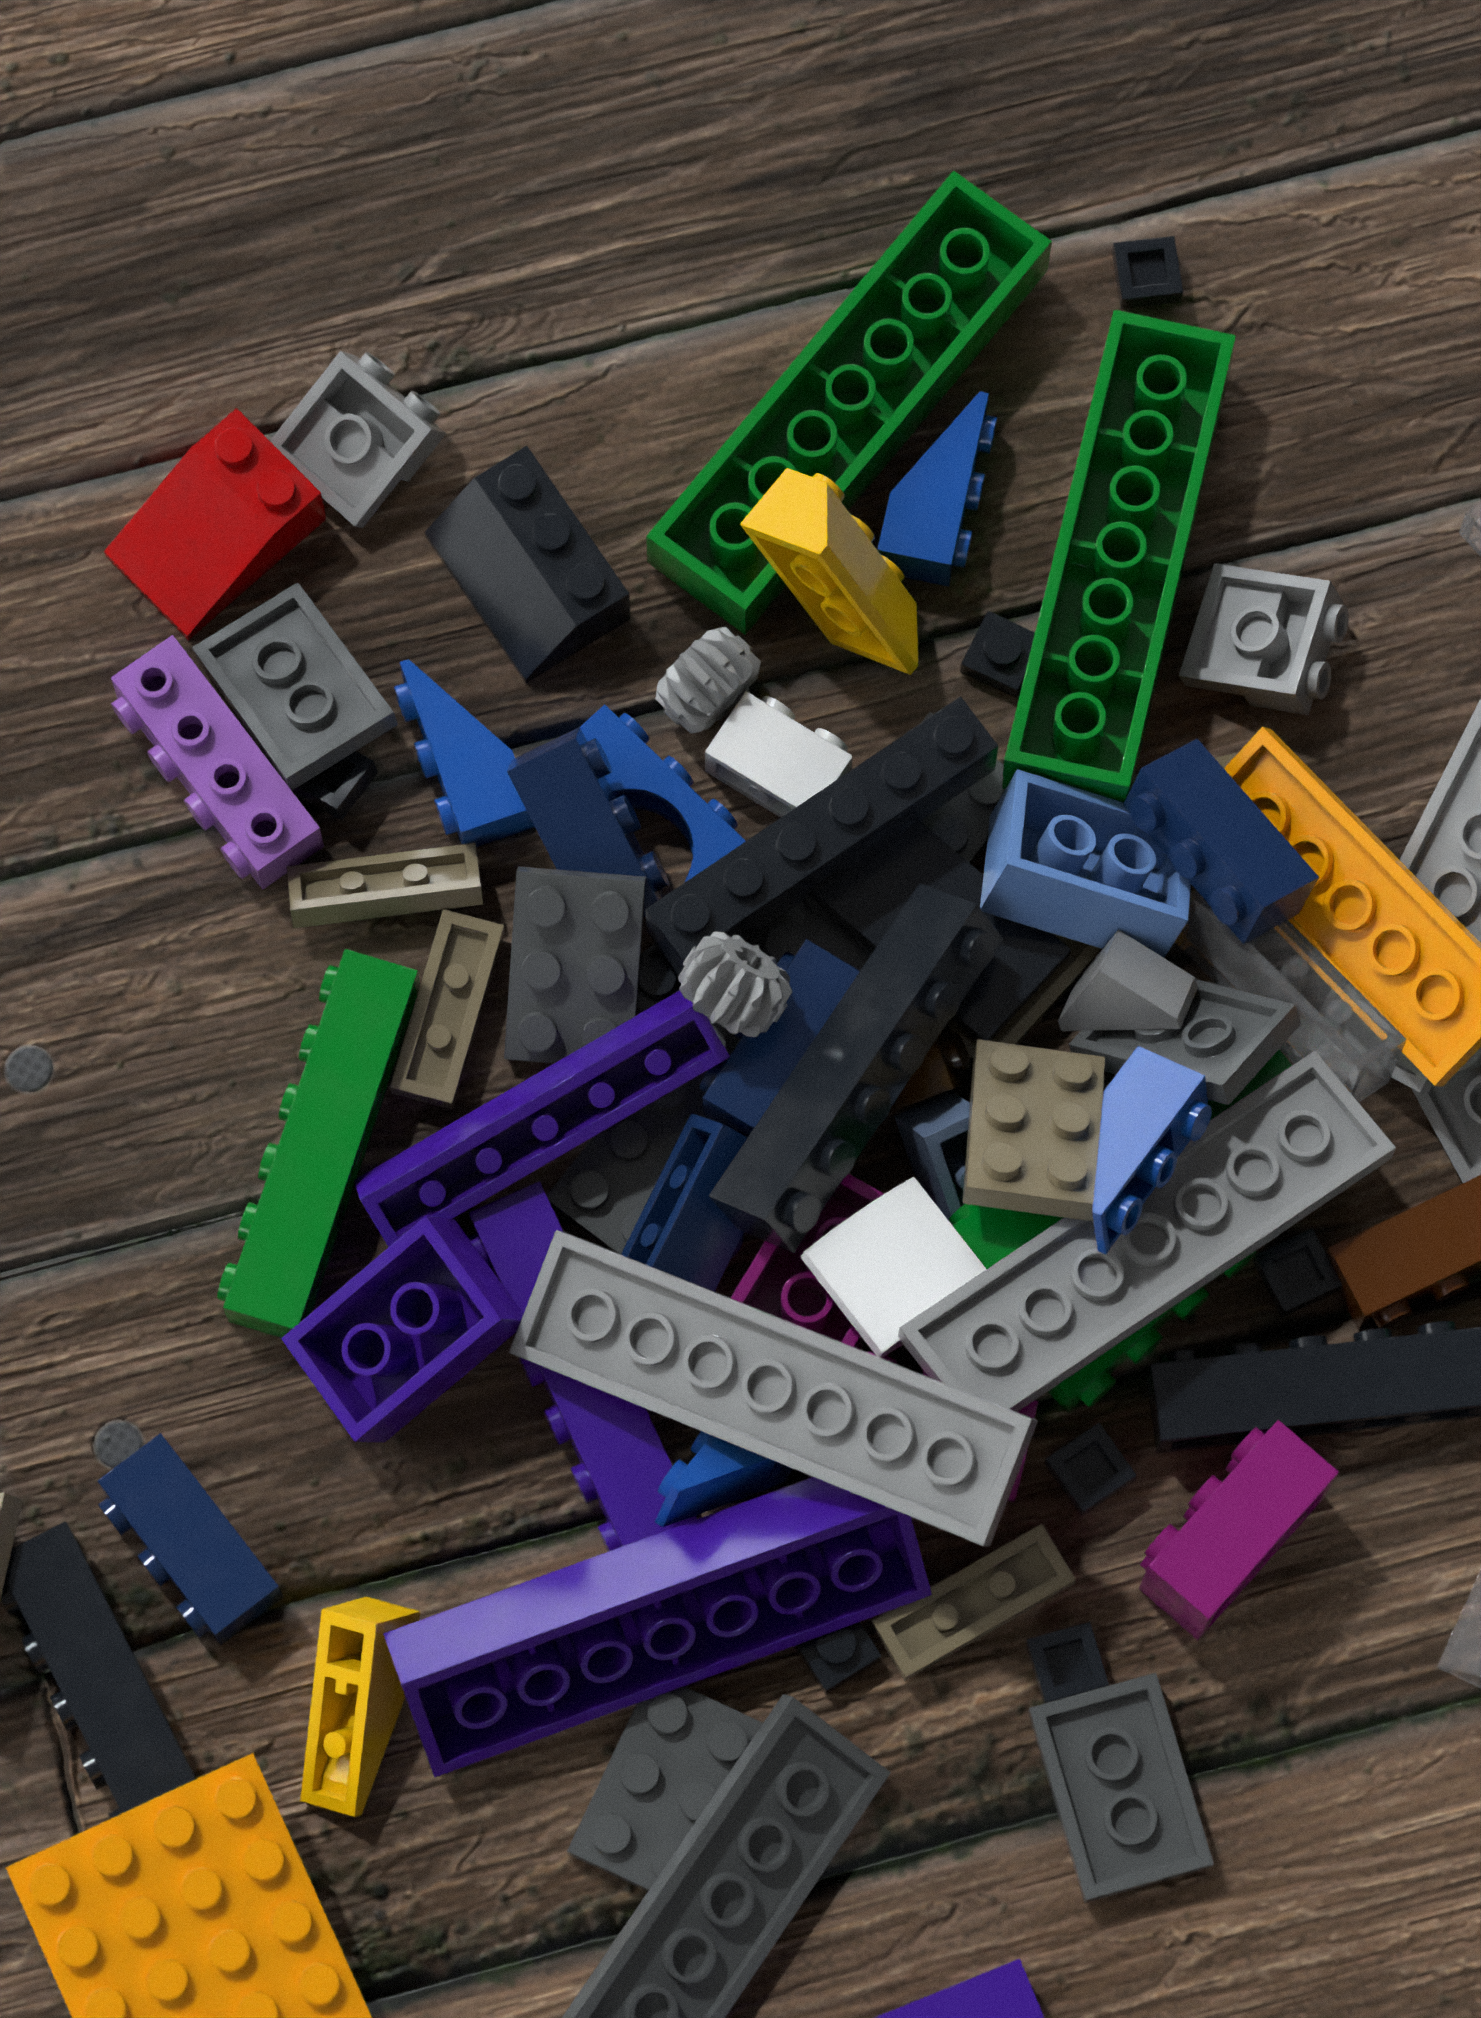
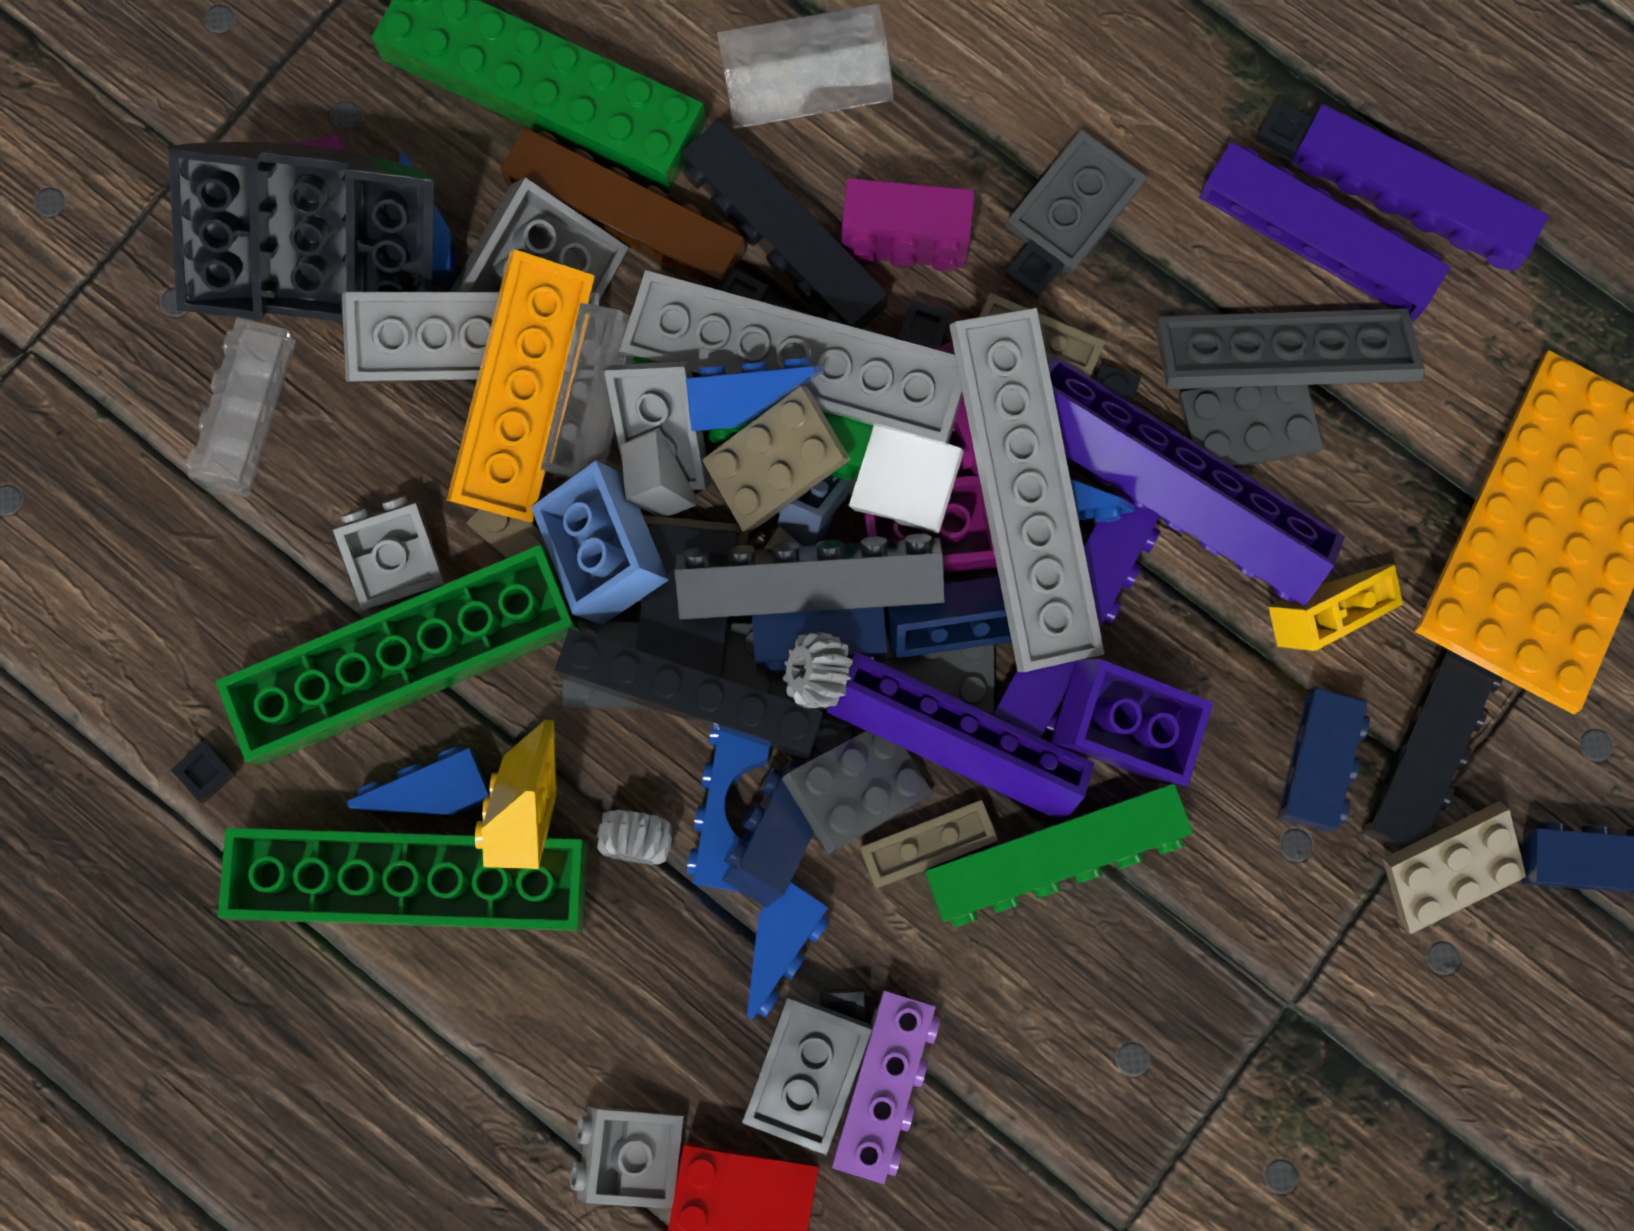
camera: 125 degrees left, 5 degrees up
(384, 885) = (885, 933): dark tan plate -> none
(528, 565) = (635, 996): black slope -> none
(774, 756) = (652, 765): white brick -> none
(999, 654) = (497, 692): black plate -> none
(1220, 841) = (536, 475): dark blue brick -> none

